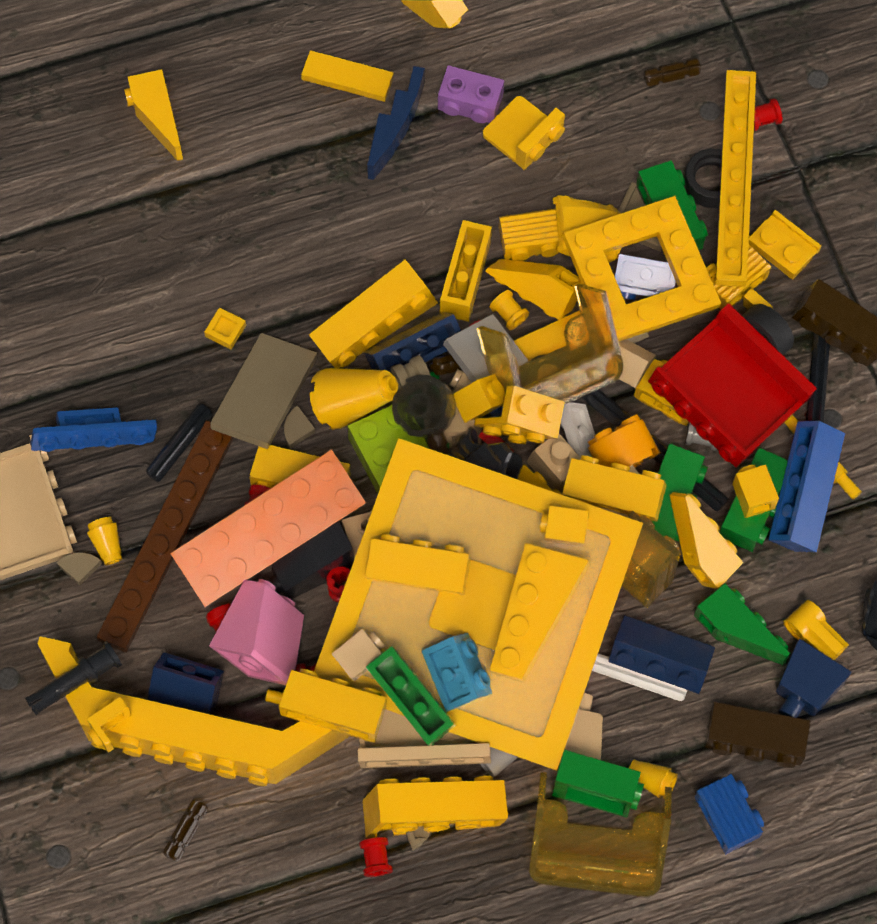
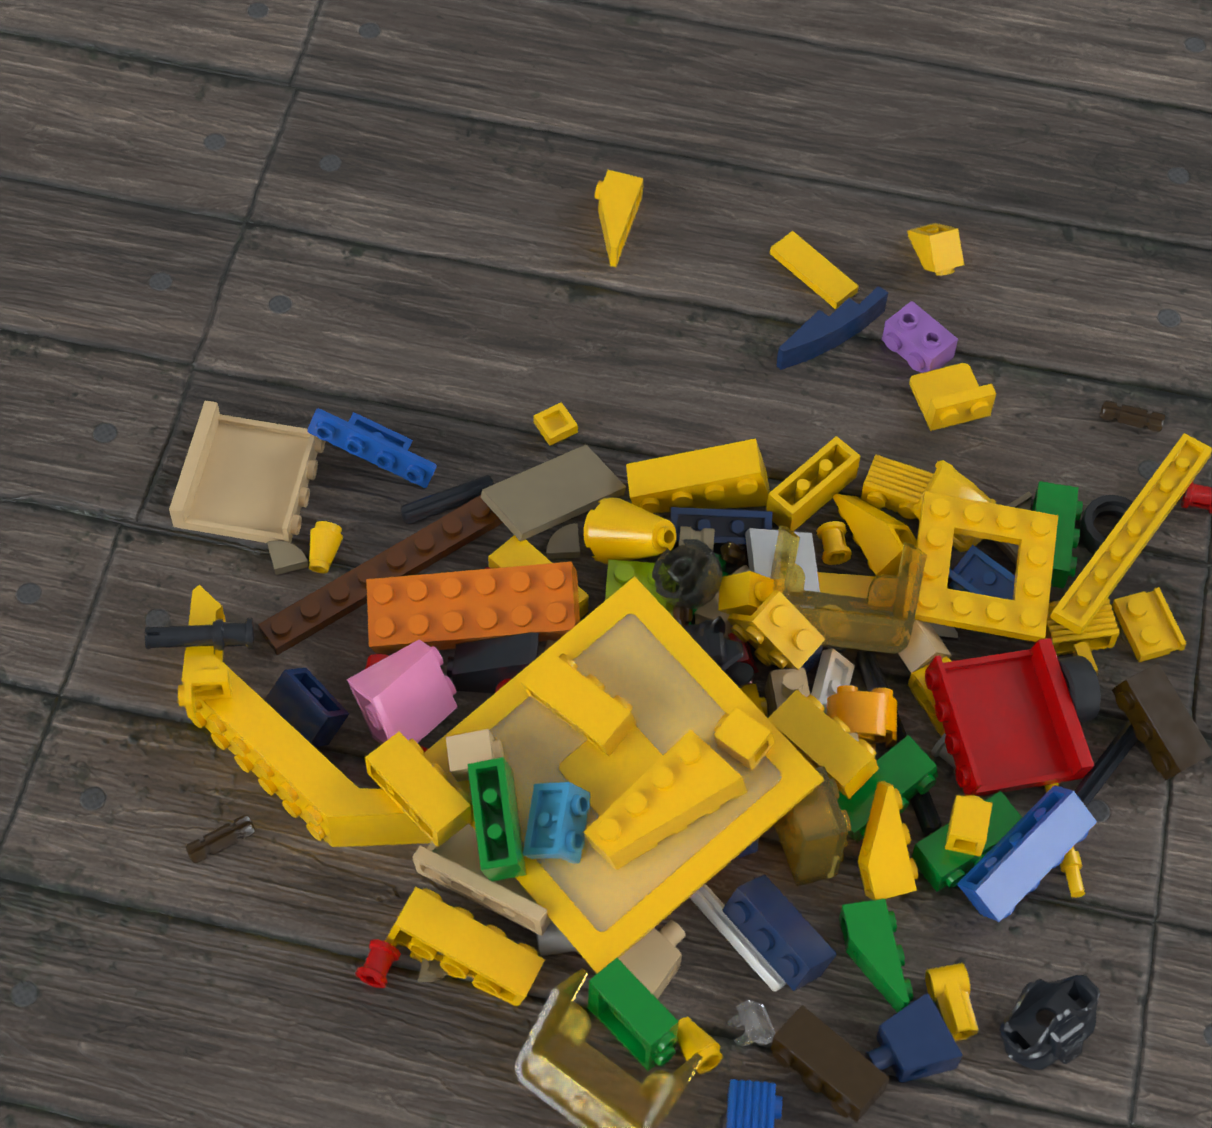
camera: 30 degrees right, 10 degrees down
(685, 734) = (756, 1024): none -> clear tile

